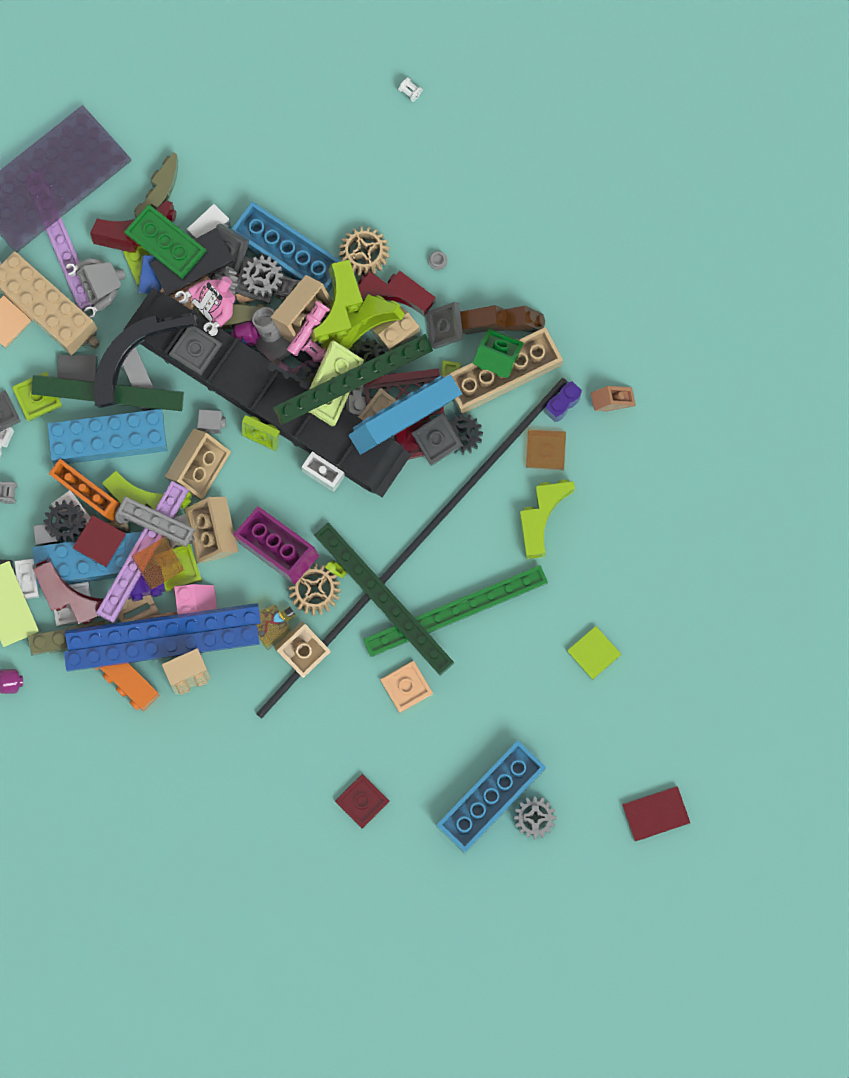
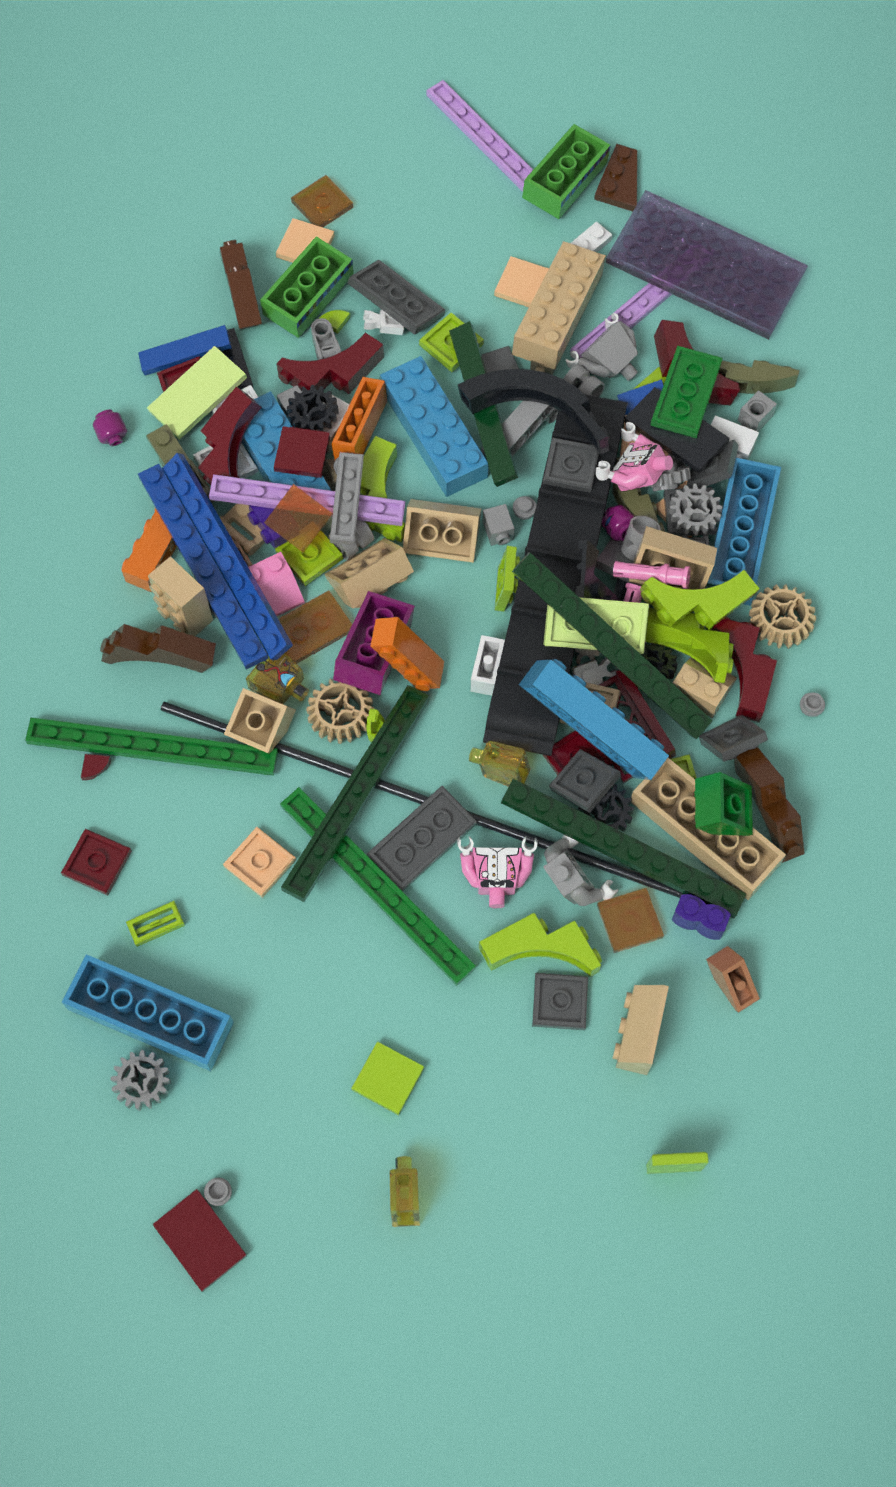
camera: 70 degrees right, 10 degrees down
(29, 488) = (342, 369): none -> dark red arch
(125, 311) = (581, 379): none -> light grey wheel
(192, 190) = (757, 404): none -> light grey brick
(202, 397) = (524, 507): none -> light grey plate
(215, 704) = (160, 646): none -> reddish brown arch
(237, 583) = (314, 626): none -> clear orange tile
(287, 780) = (94, 765): none -> dark red tile
(288, 735) = (150, 746): none -> green plate
(301, 523) = (407, 653): none -> orange brick
(407, 485) = (501, 762): none -> clear yellow torso
(425, 790) = (158, 932): none -> lime tile
(433, 567) = (422, 838): none -> dark grey tile
(477, 524) = (496, 870): none -> torso
(495, 434) = (621, 847): none -> dark green plate
(501, 477) = (570, 877): none -> light grey torso
(584, 519) = (560, 1001): none -> dark grey tile
(625, 472) = (640, 1028): none -> tan slope
(629, 791) = (218, 1191): none -> light grey plate
(684, 670) = (404, 1193): none -> clear yellow torso
(721, 489) = (677, 1162): none -> lime tile

